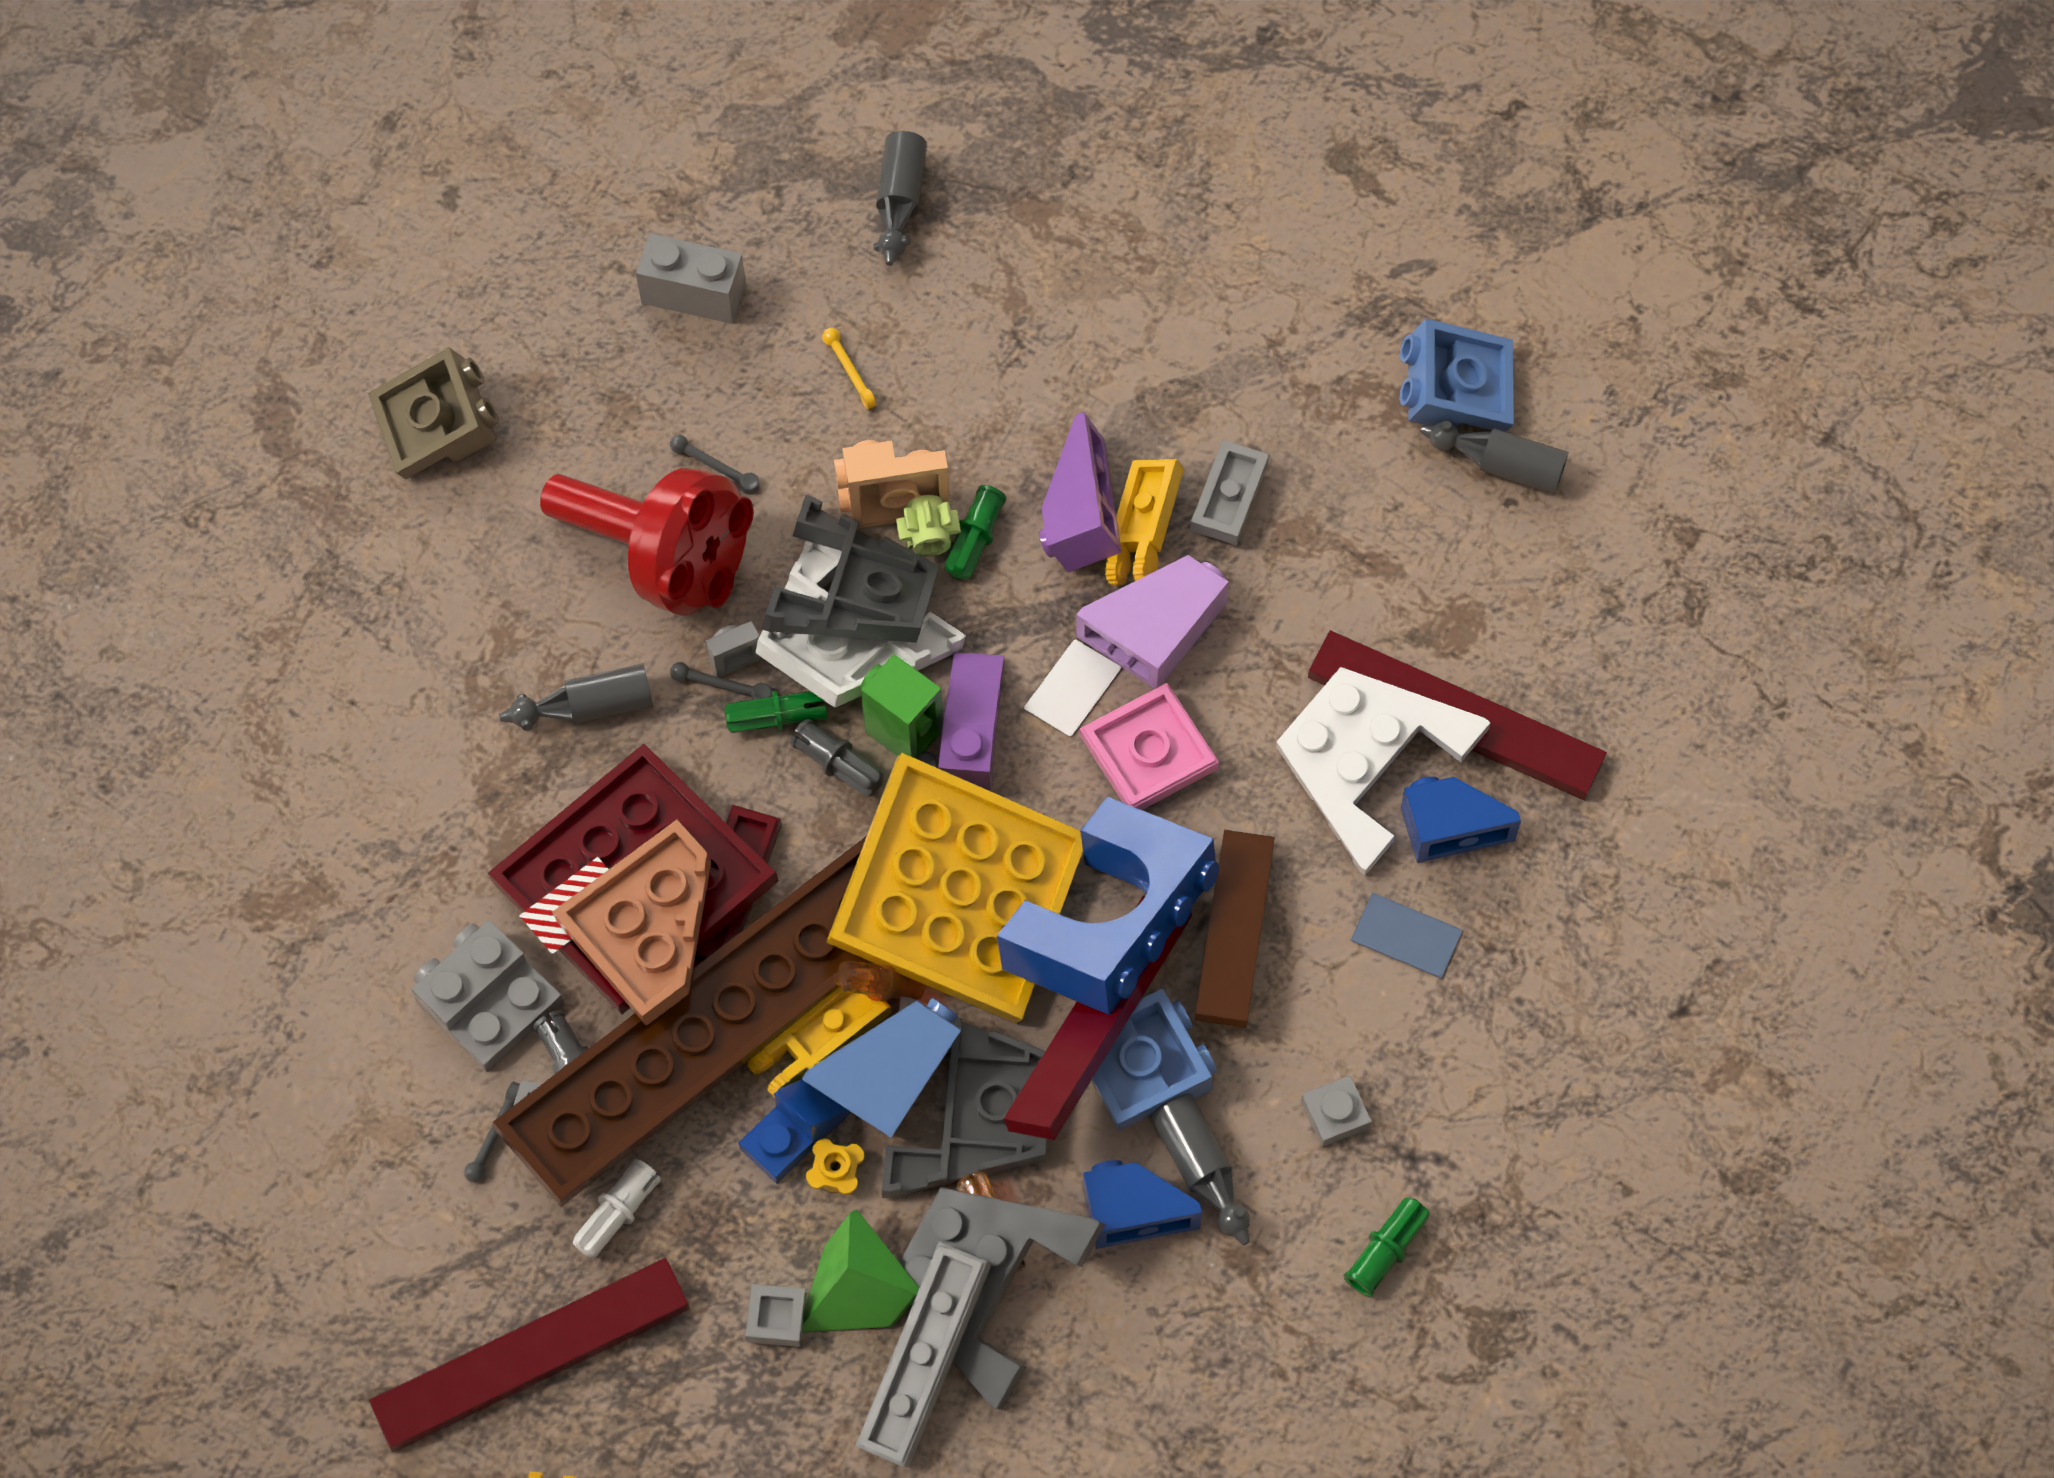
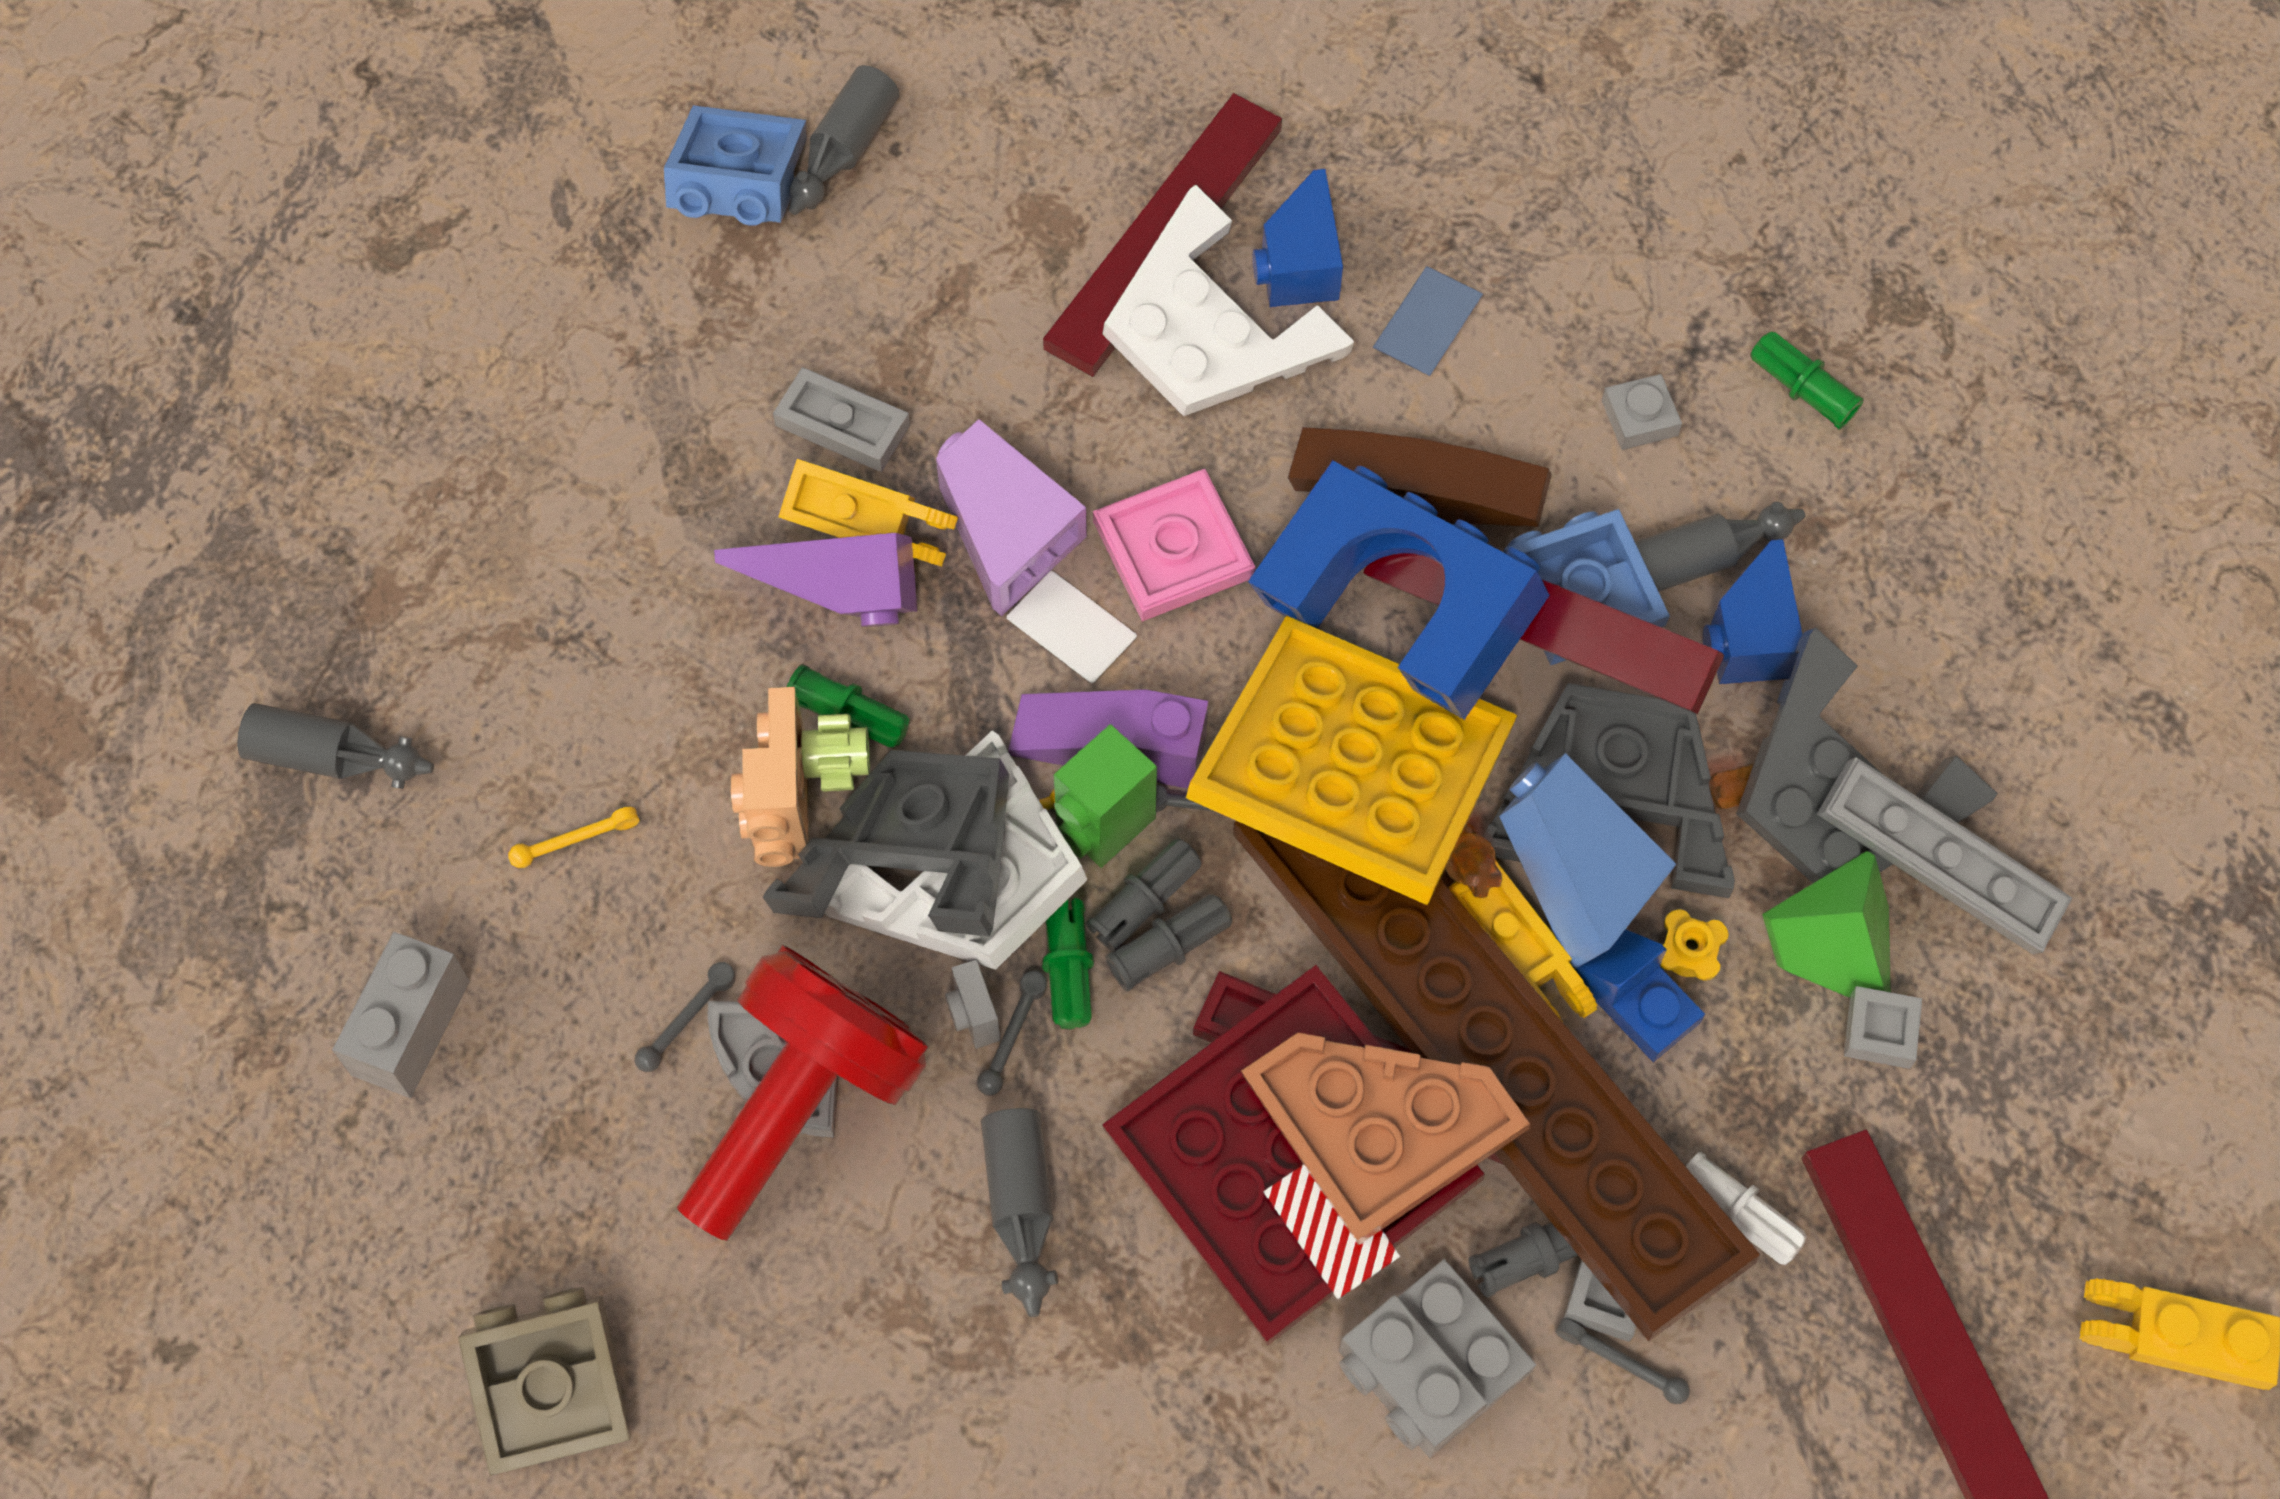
camera: 85 degrees left, 0 degrees up
(801, 780) = (1168, 941): none -> dark grey axle

